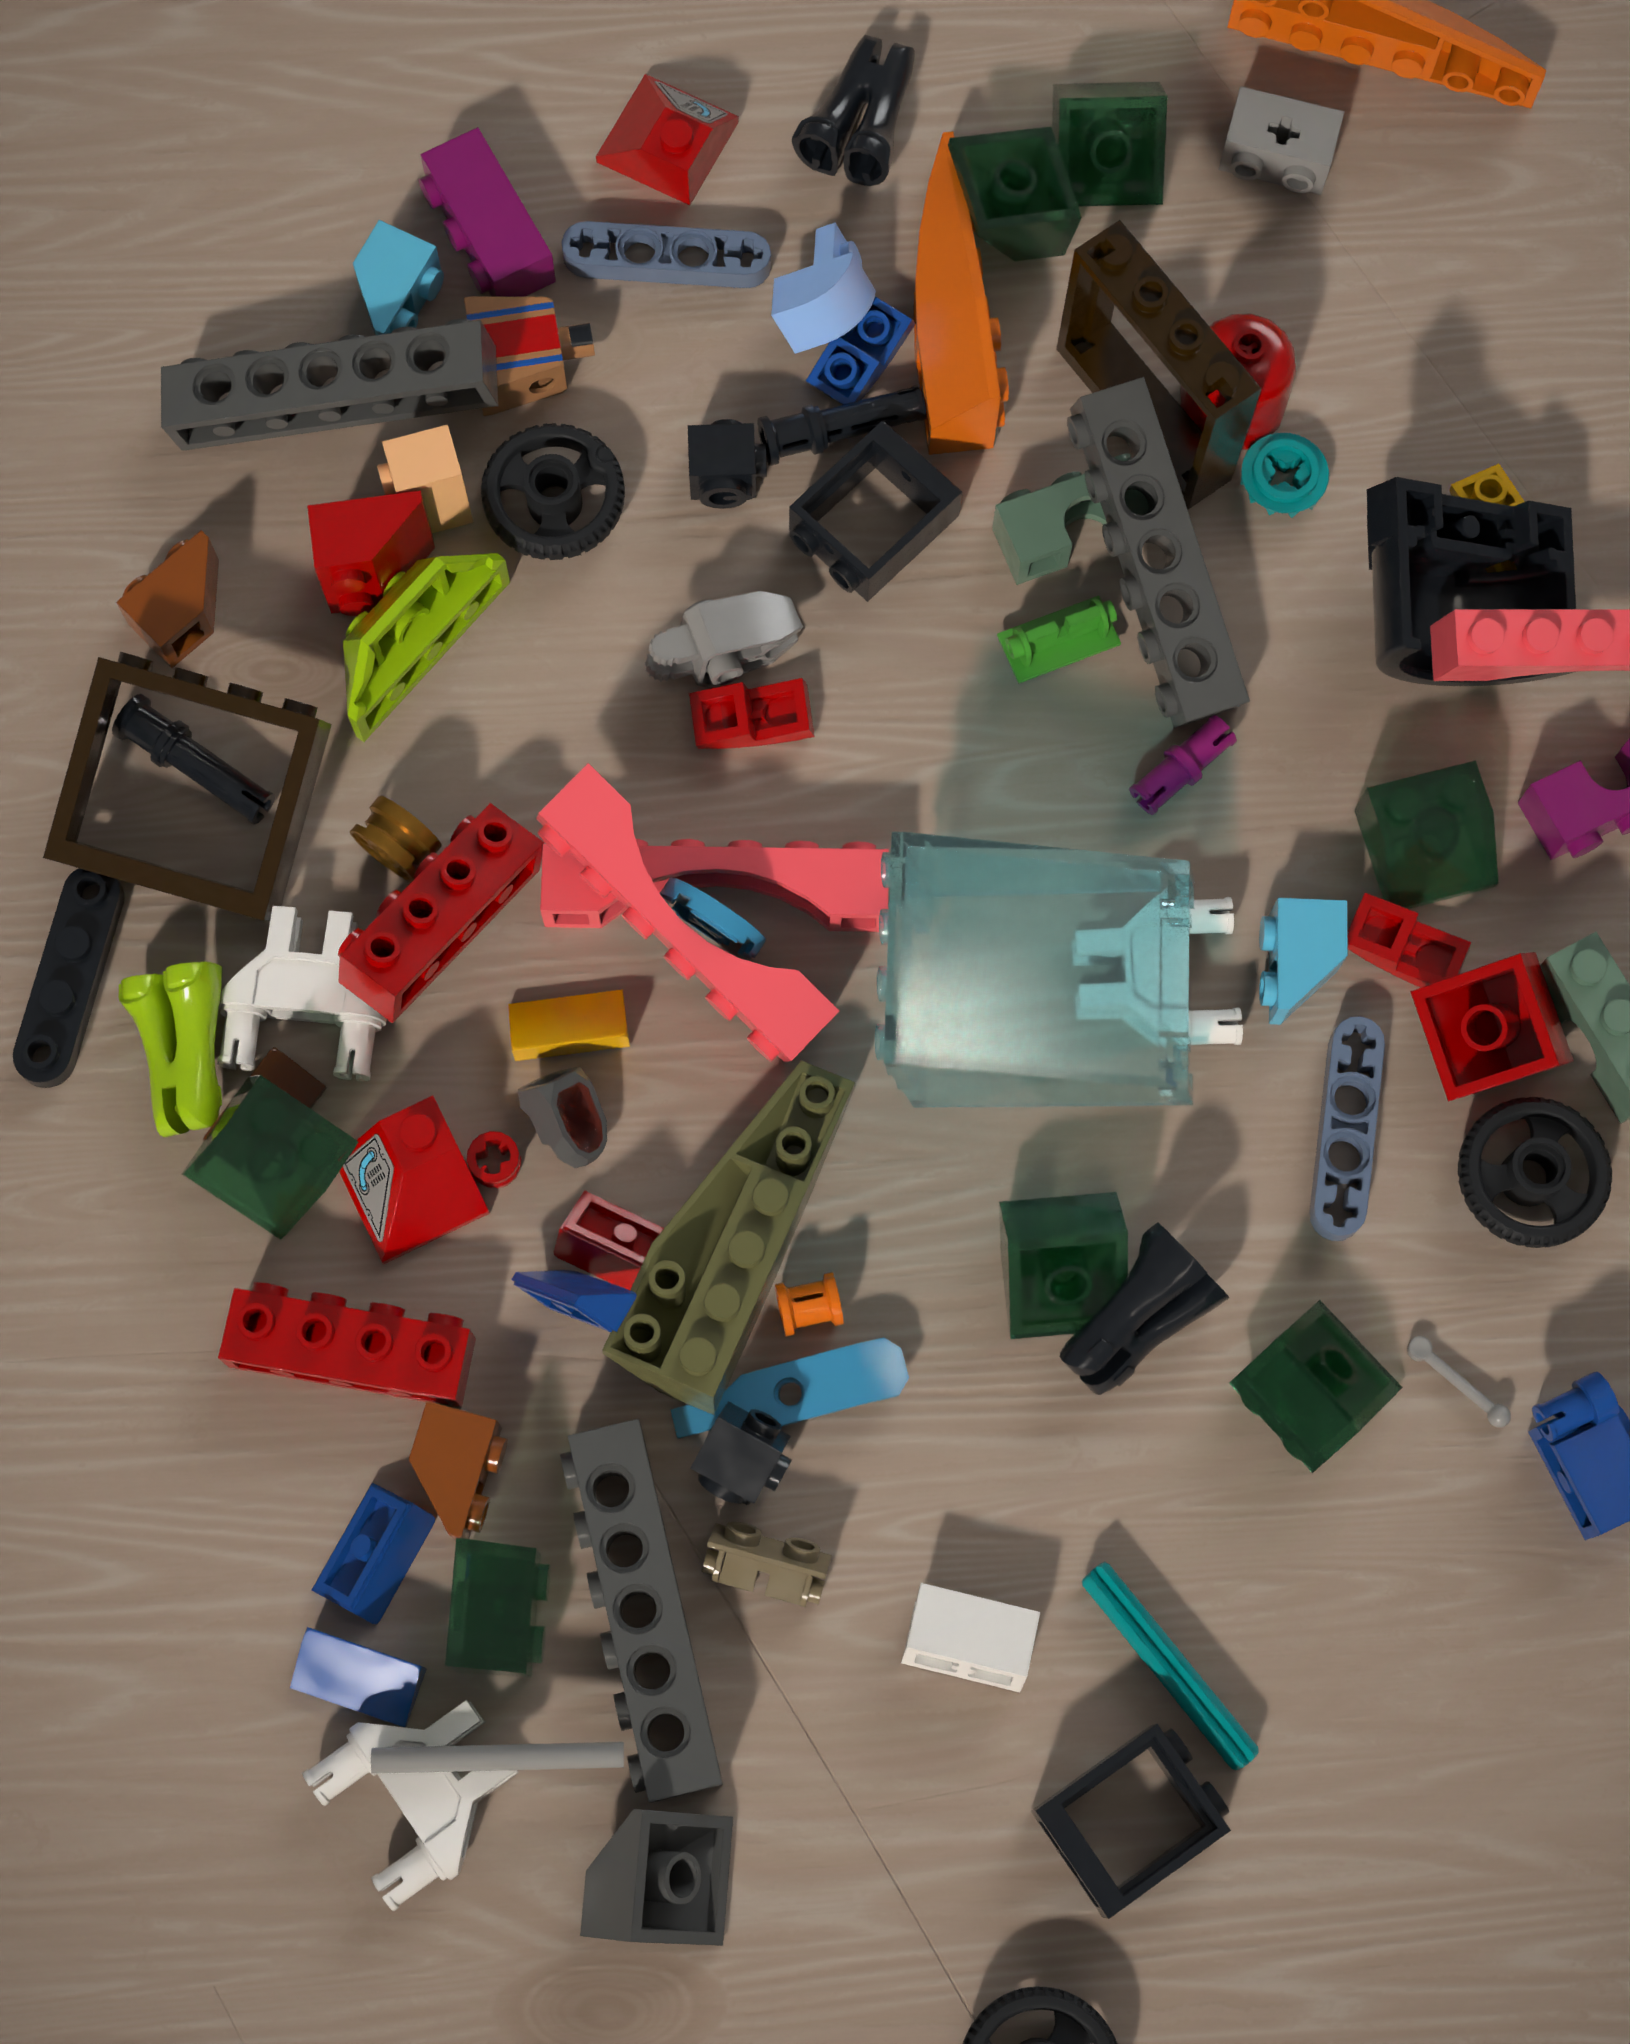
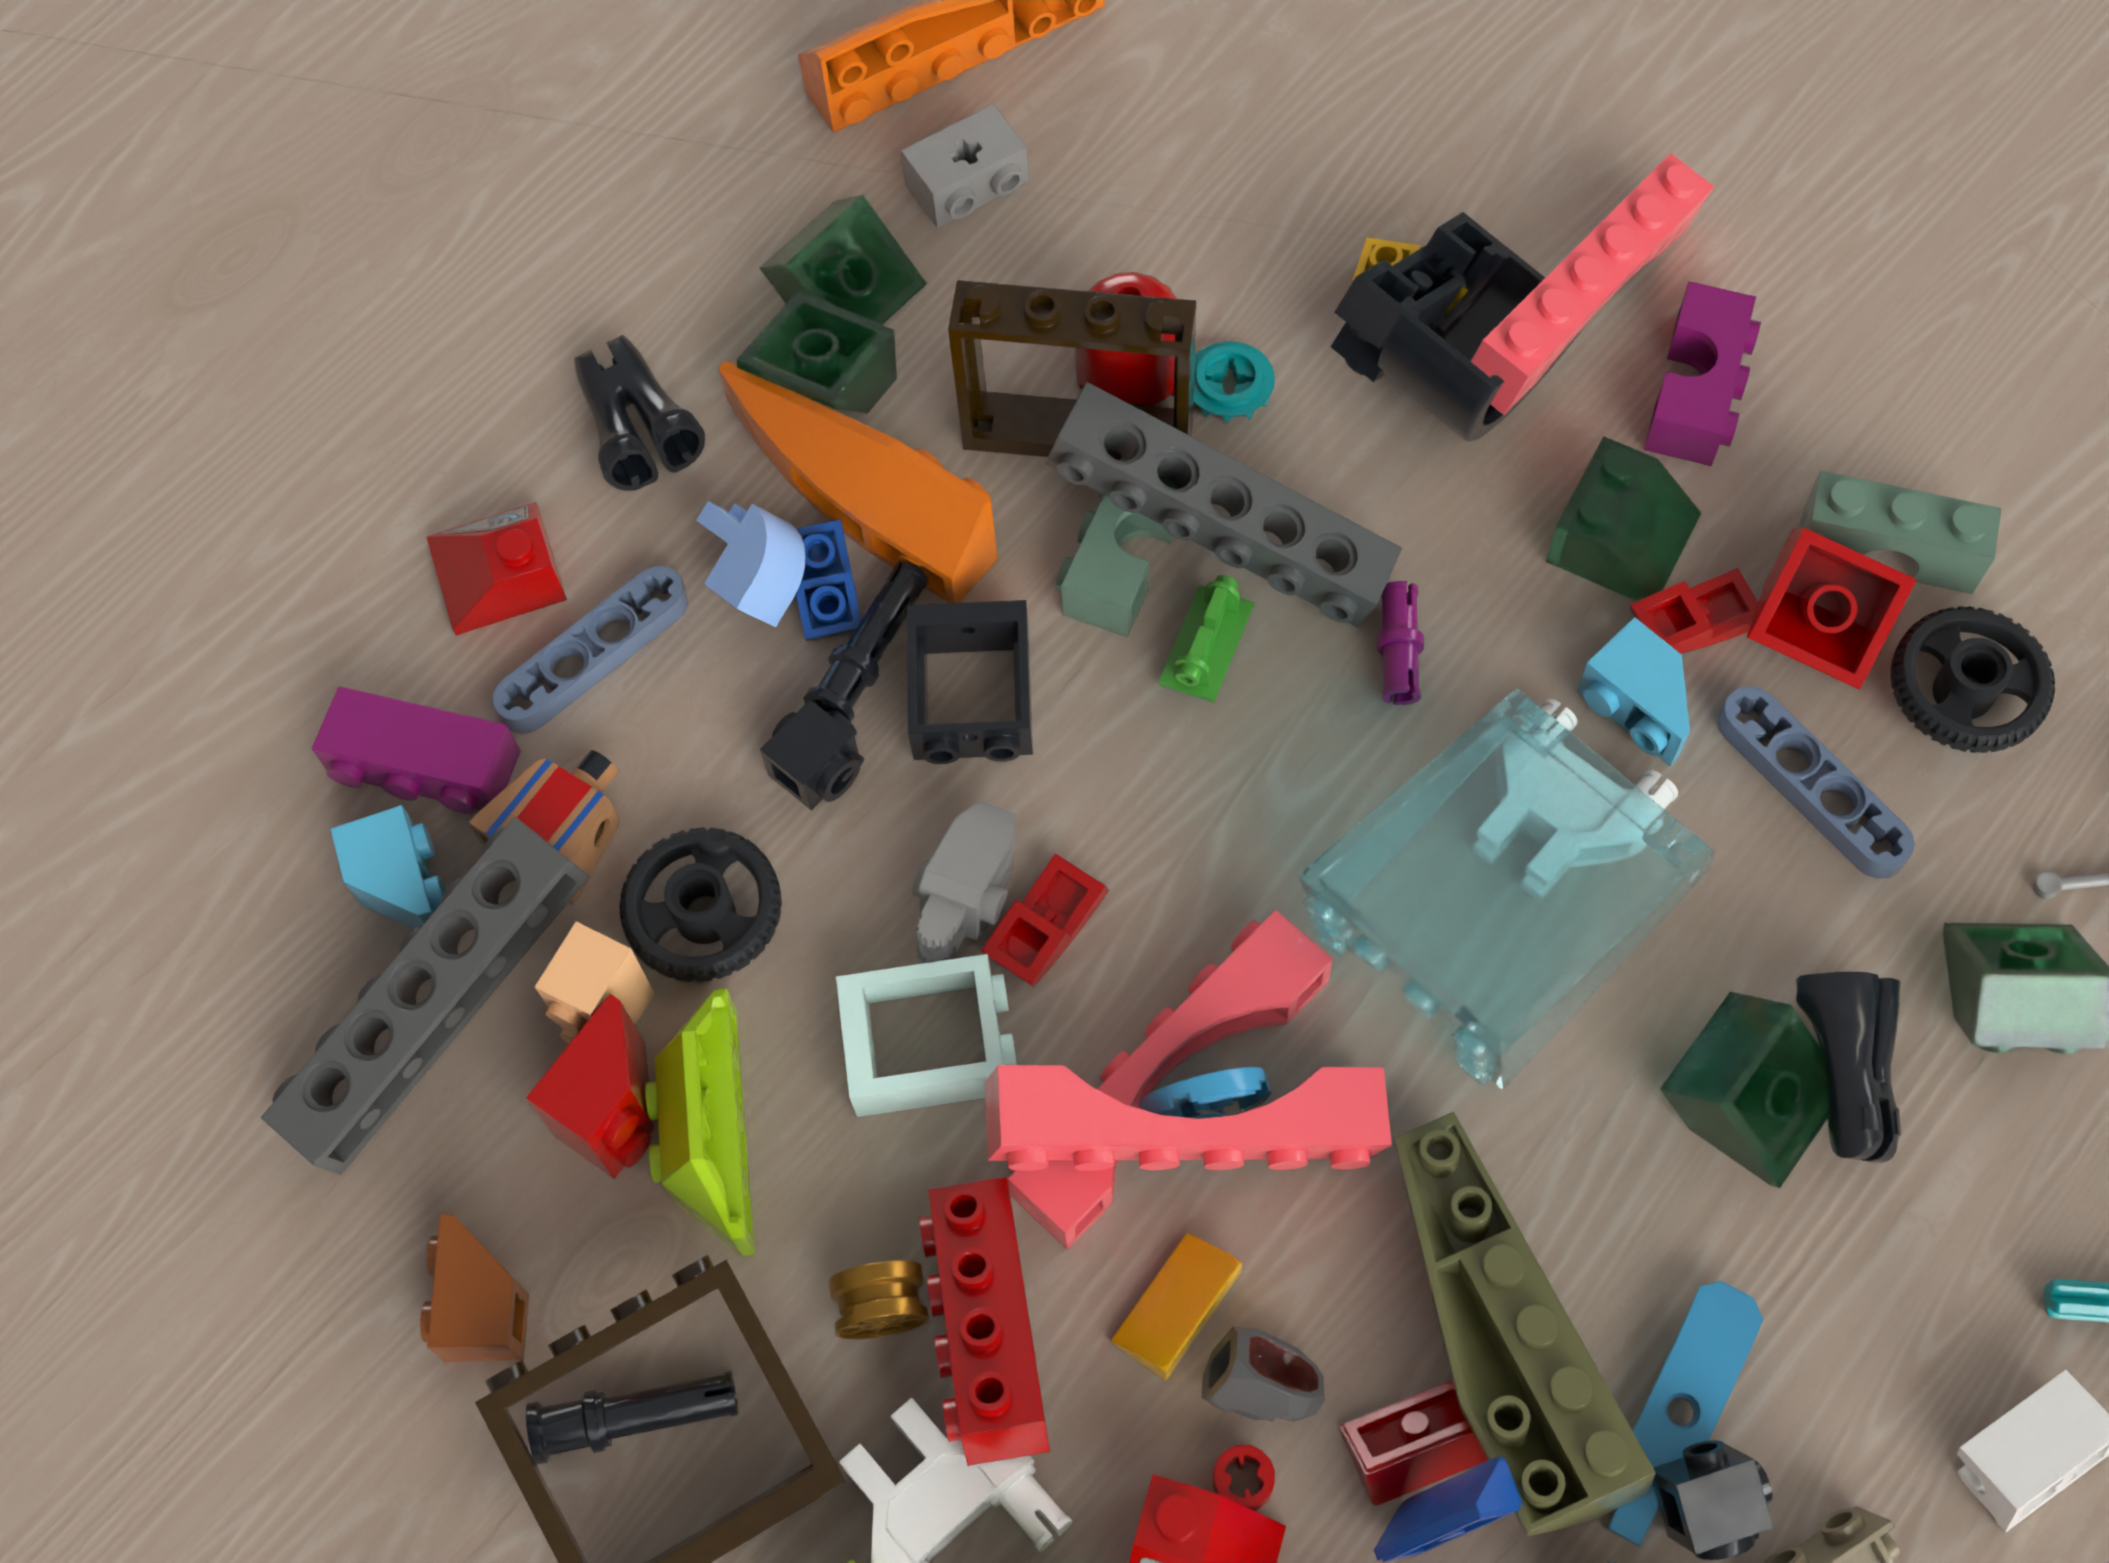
camera: 40 degrees left, 10 degrees down
(553, 676) = (929, 1087): none -> light aqua window
(809, 1304) = (1616, 1322): orange bush -> none

